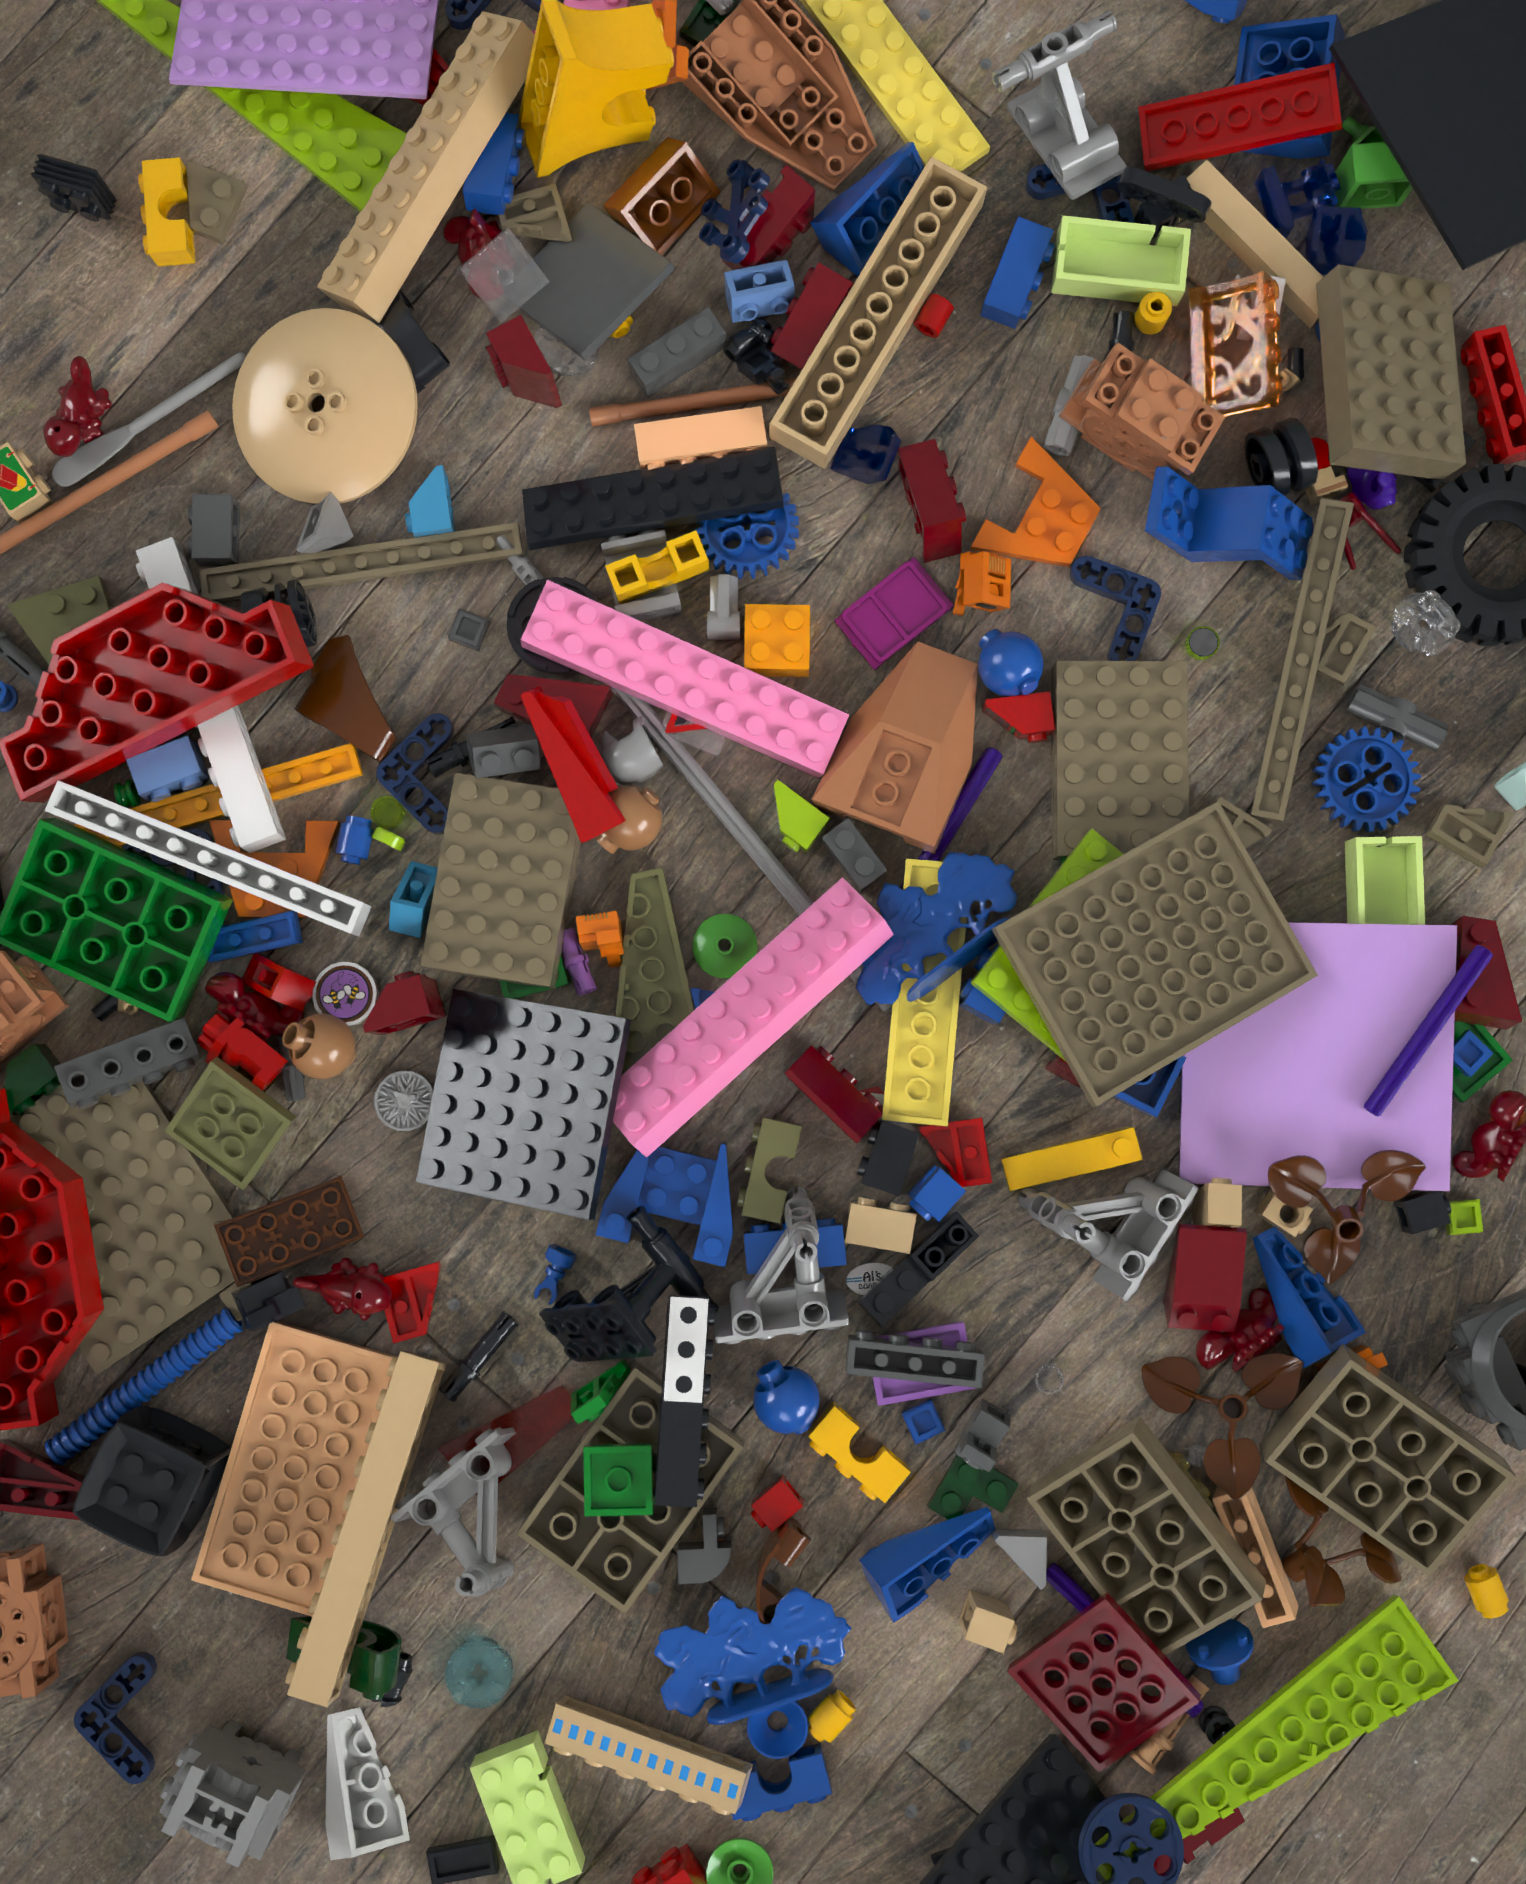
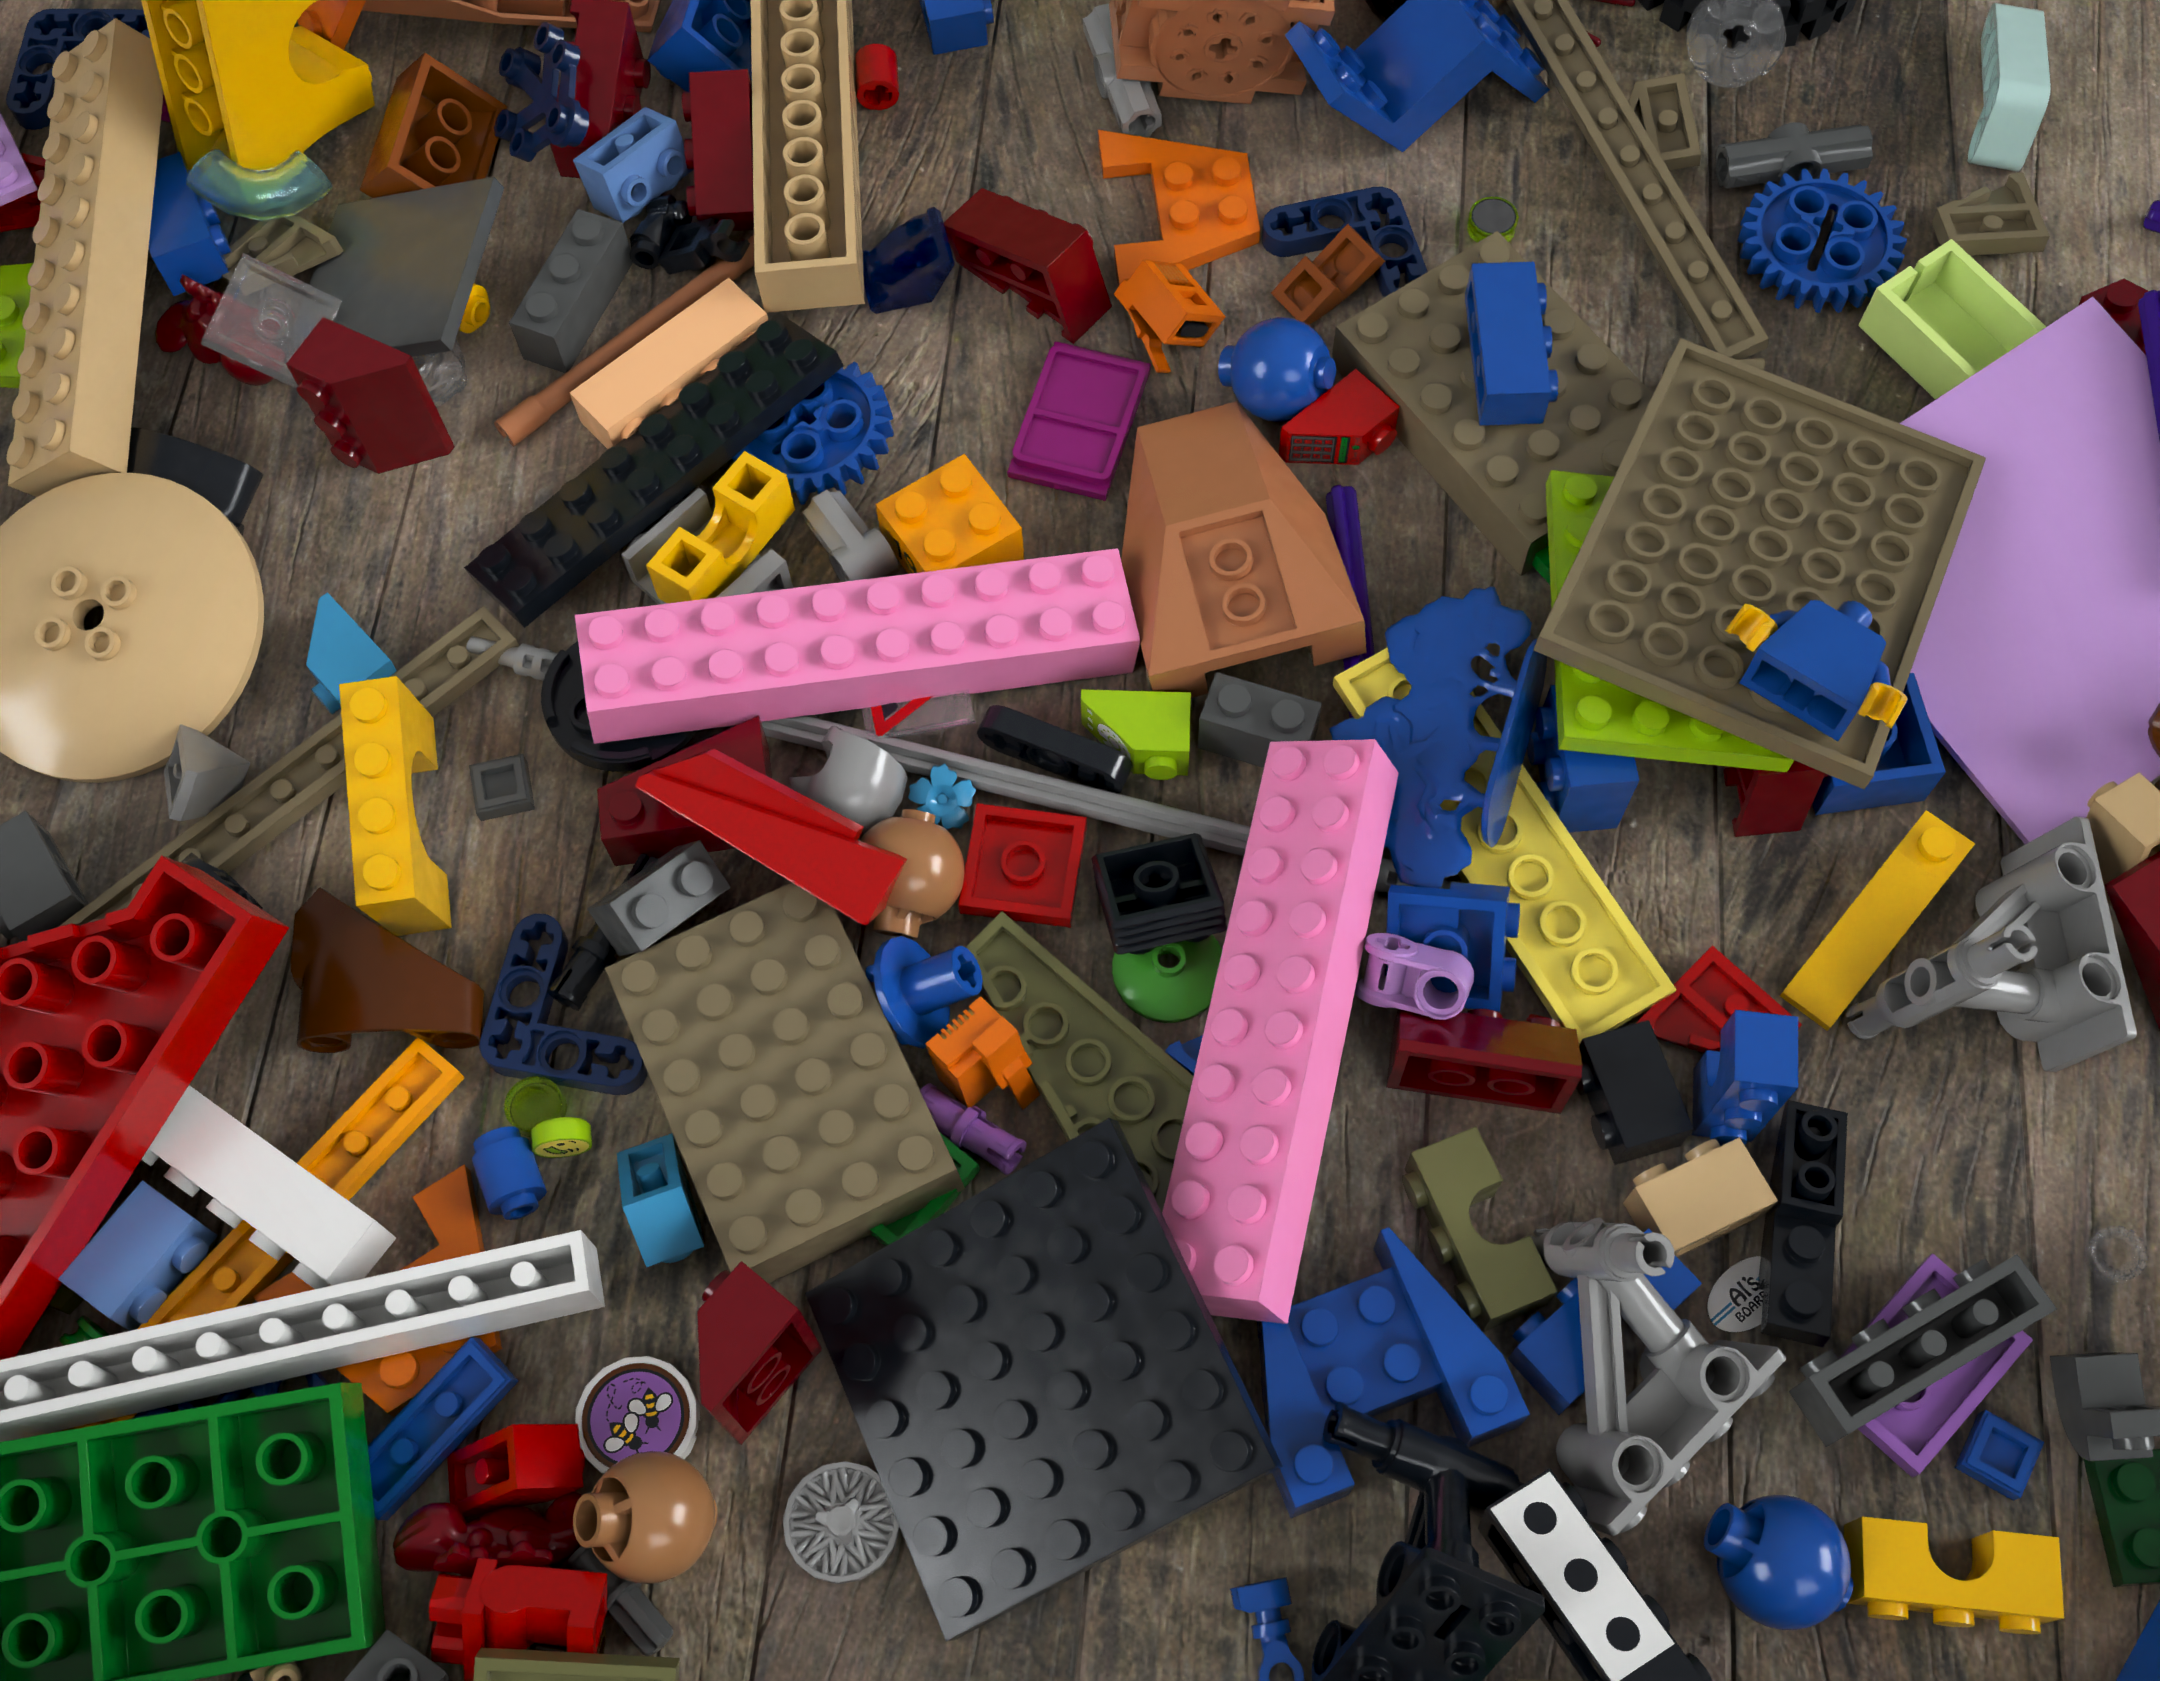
camera: 35 degrees left, 20 degrees down
(384, 651) = (384, 743): none -> yellow arch
(544, 178) = (258, 193): none -> clear light blue cylinder
(595, 882) = (919, 988): none -> blue piece
(675, 785) = (943, 796): none -> dark azure plant
(690, 848) = (1023, 865): none -> red plate
(735, 893) = (1159, 894): none -> black brick
(746, 798) = (1054, 749): none -> black beam
(825, 1042) = (1409, 977): none -> lavender piece
(856, 1034) = (1463, 920): none -> blue plate
(1085, 619) = (1325, 282): none -> dark orange slope
(1115, 1037) = (1819, 664): none -> blue torso
(1130, 741) = (1509, 343): none -> blue brick

